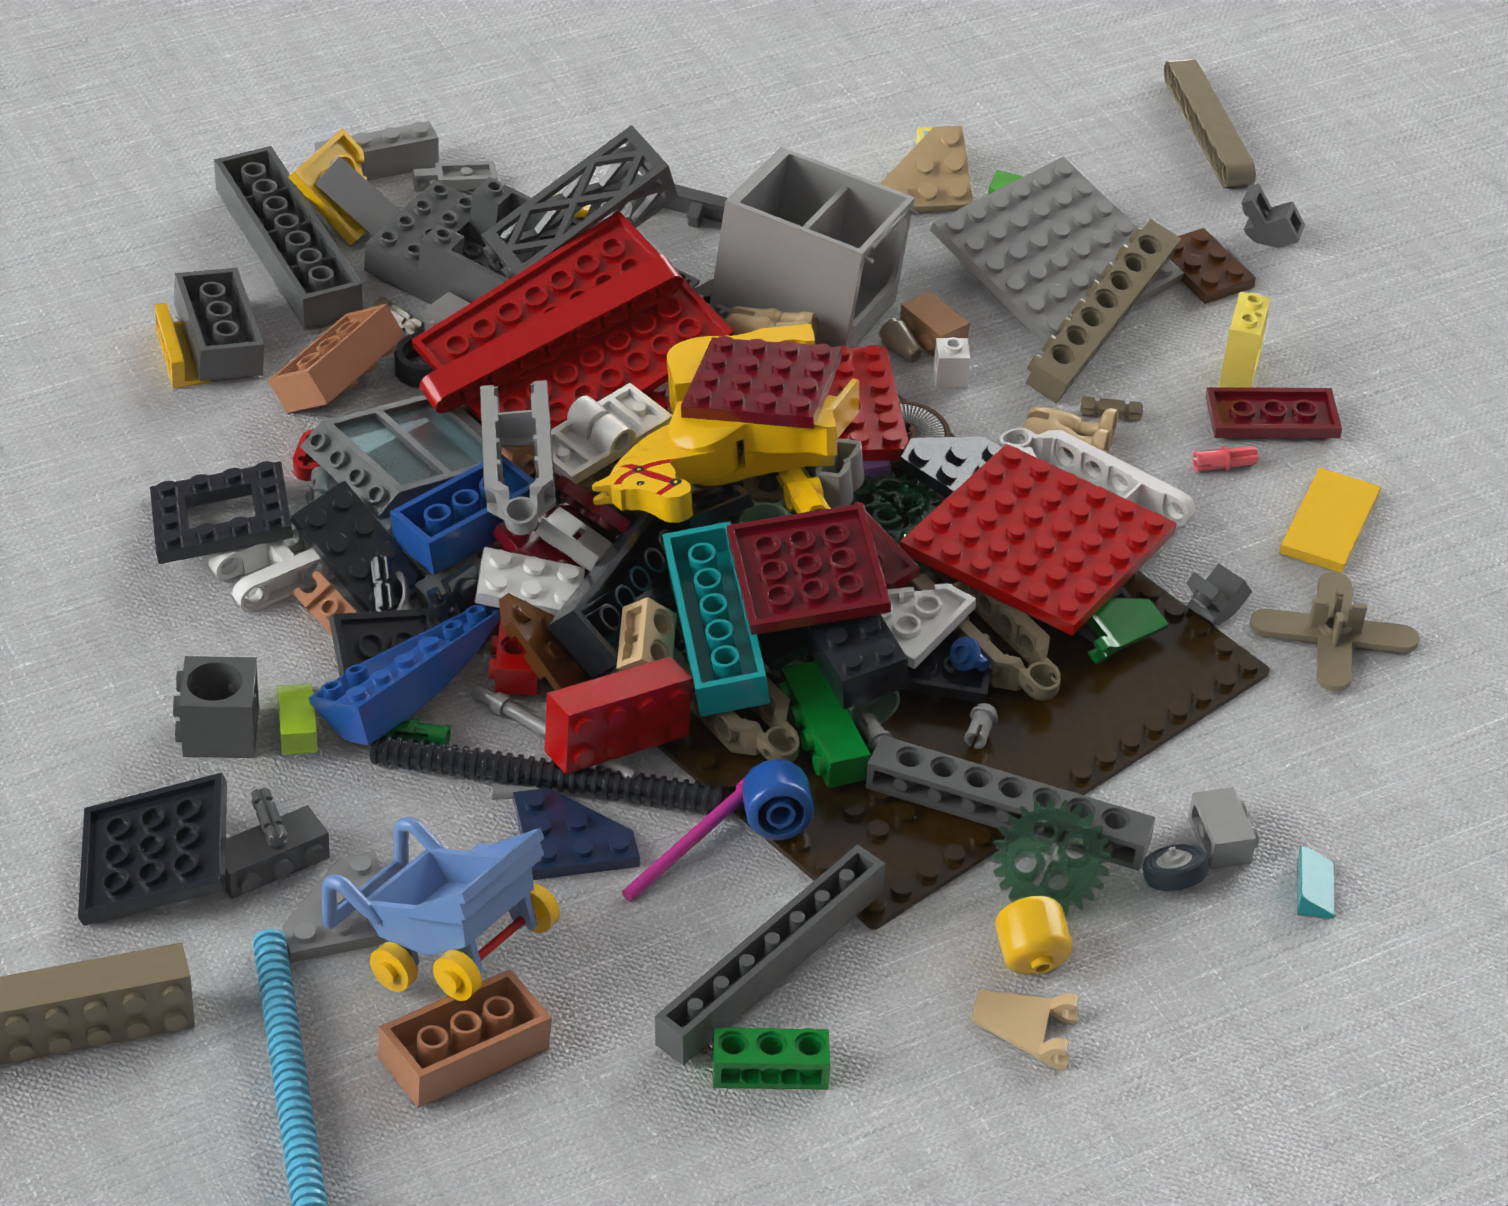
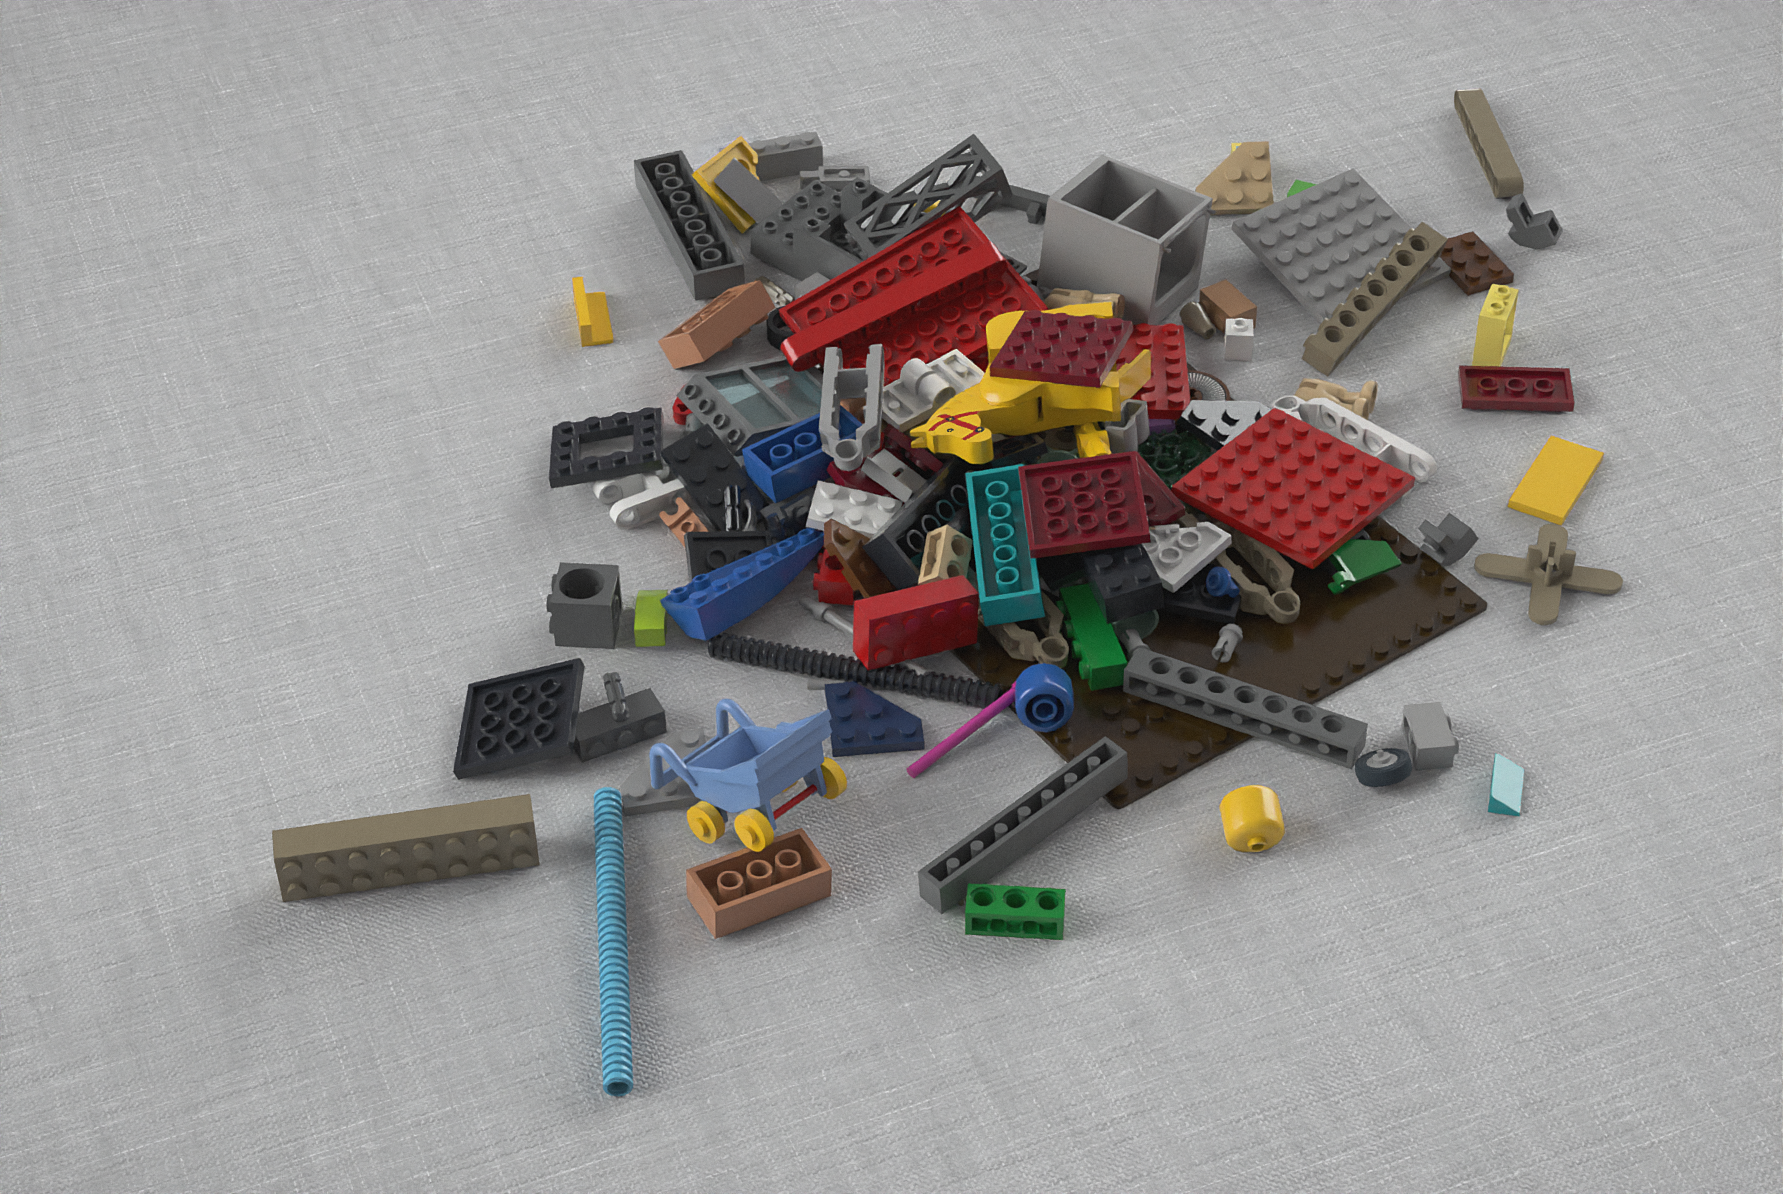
camera: 10 degrees right, 0 degrees up
(218, 324) = (623, 295): dark grey brick -> none
(420, 731) = (751, 630): green pin -> none
(1022, 843) = (1249, 741): clear green gear -> none
(1025, 1020) = (1238, 889): tan flag -> none
(1132, 410) = (1393, 383): dark tan axle -> none
(1224, 458) = (1468, 426): coral axle -> none

